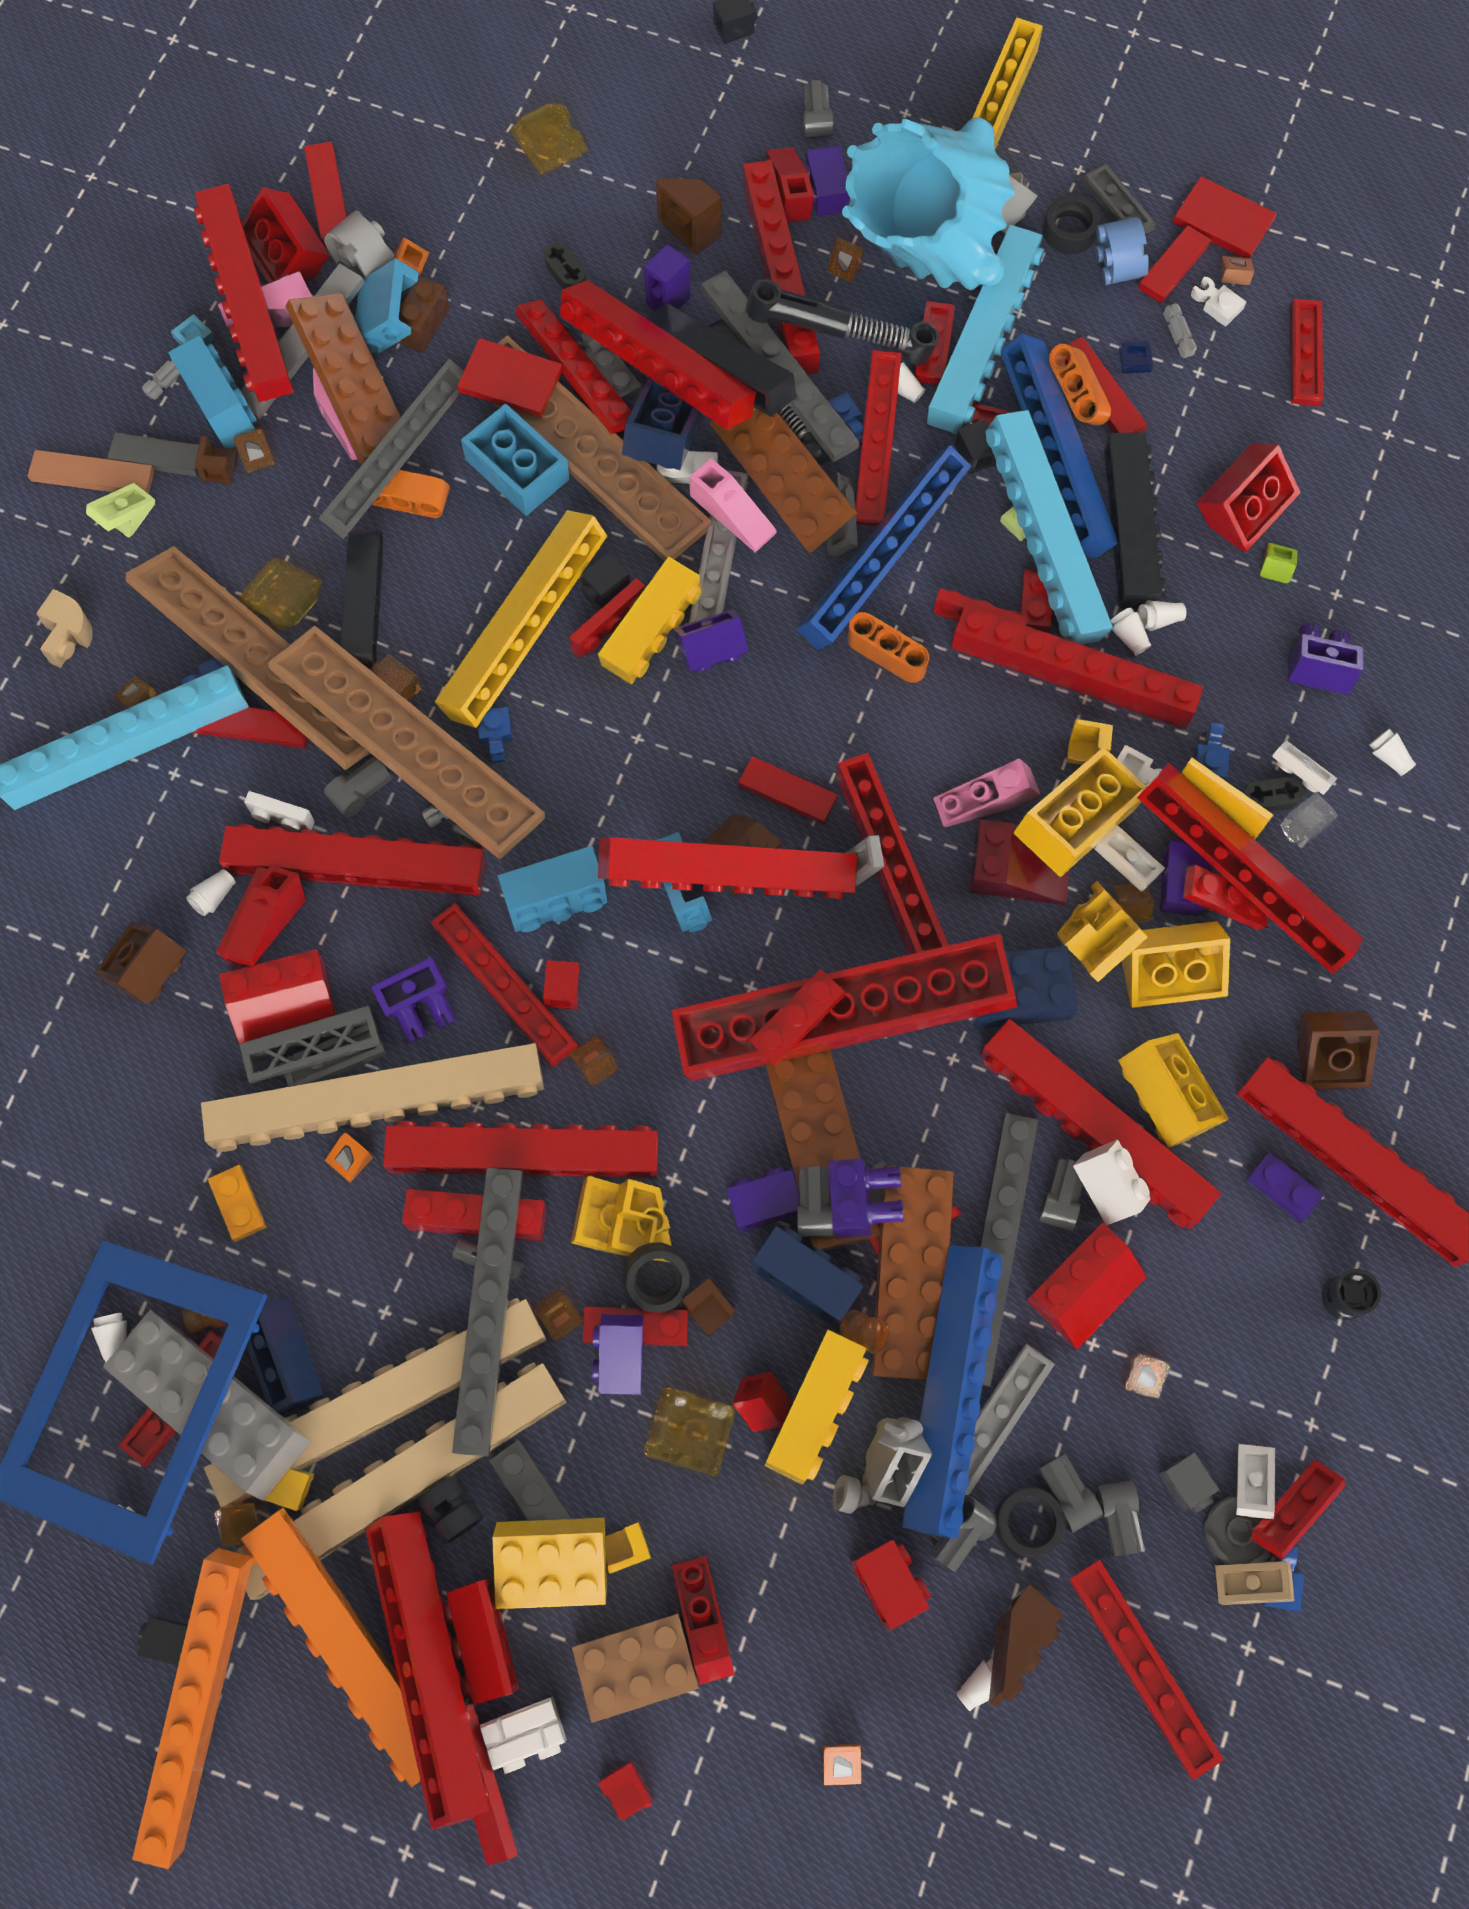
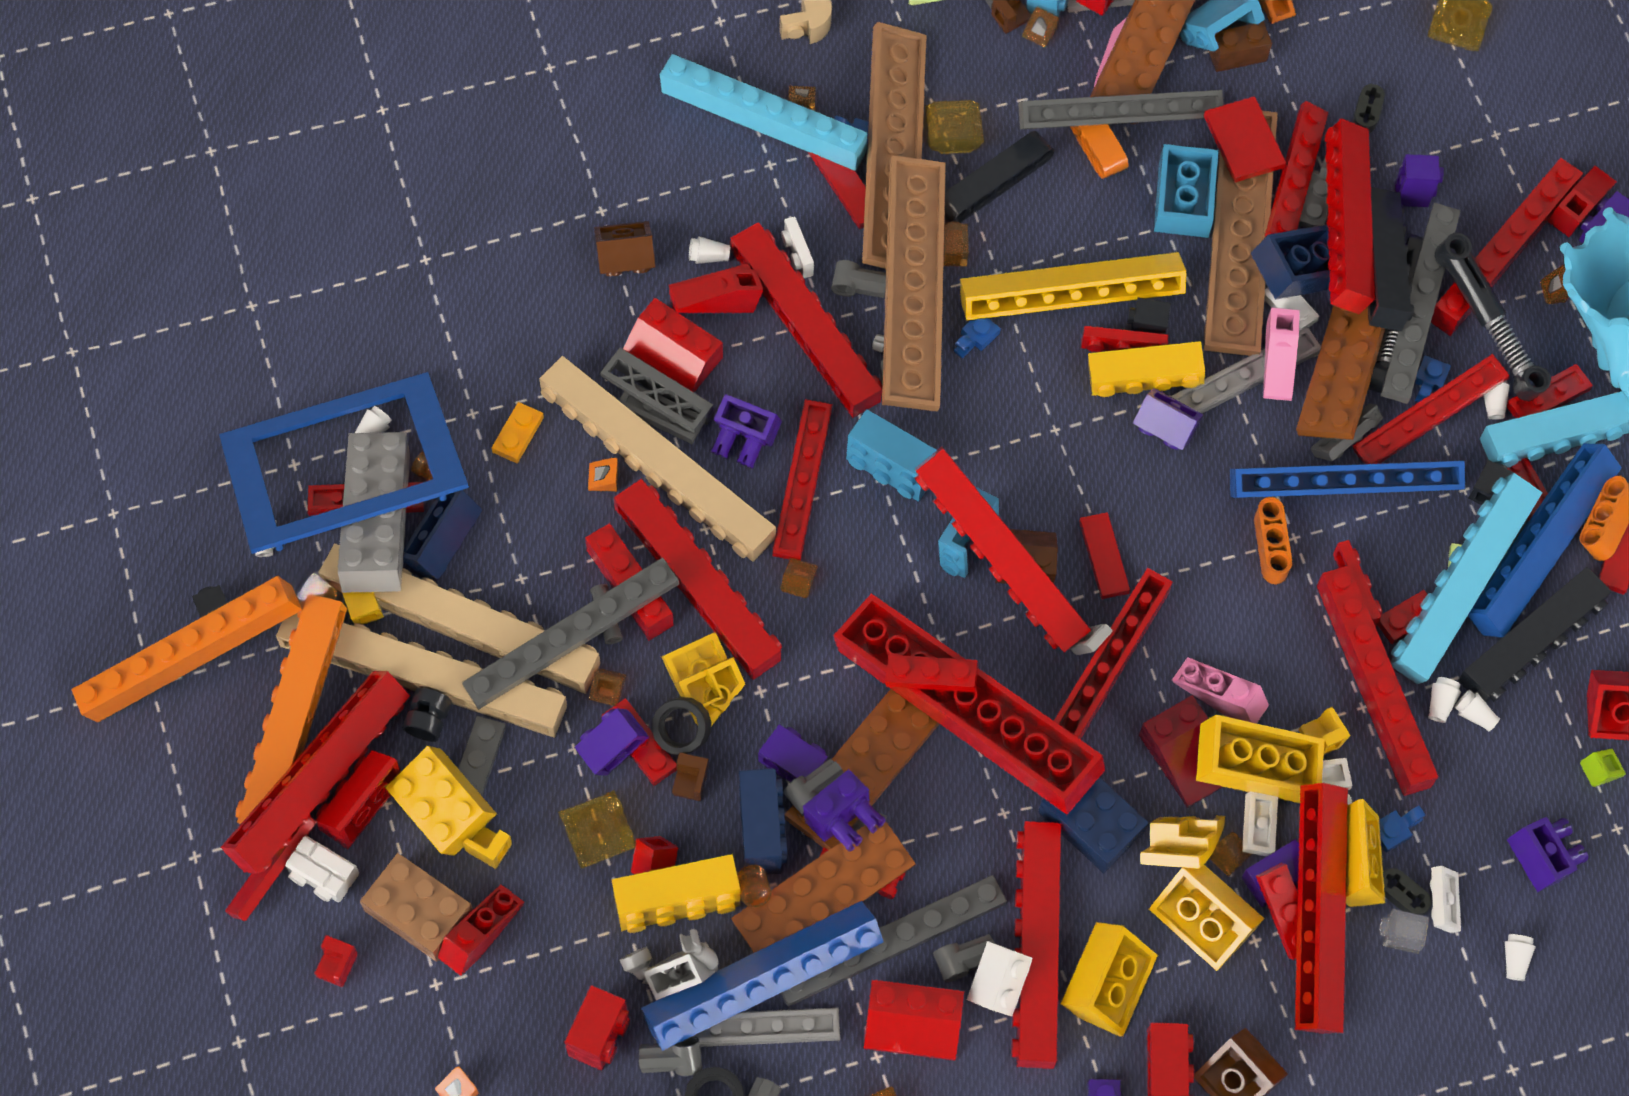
camera: 50 degrees right, 5 degrees down
(561, 985) = (830, 513): red panel -> none
(689, 211) = (1489, 153): reddish brown slope -> none

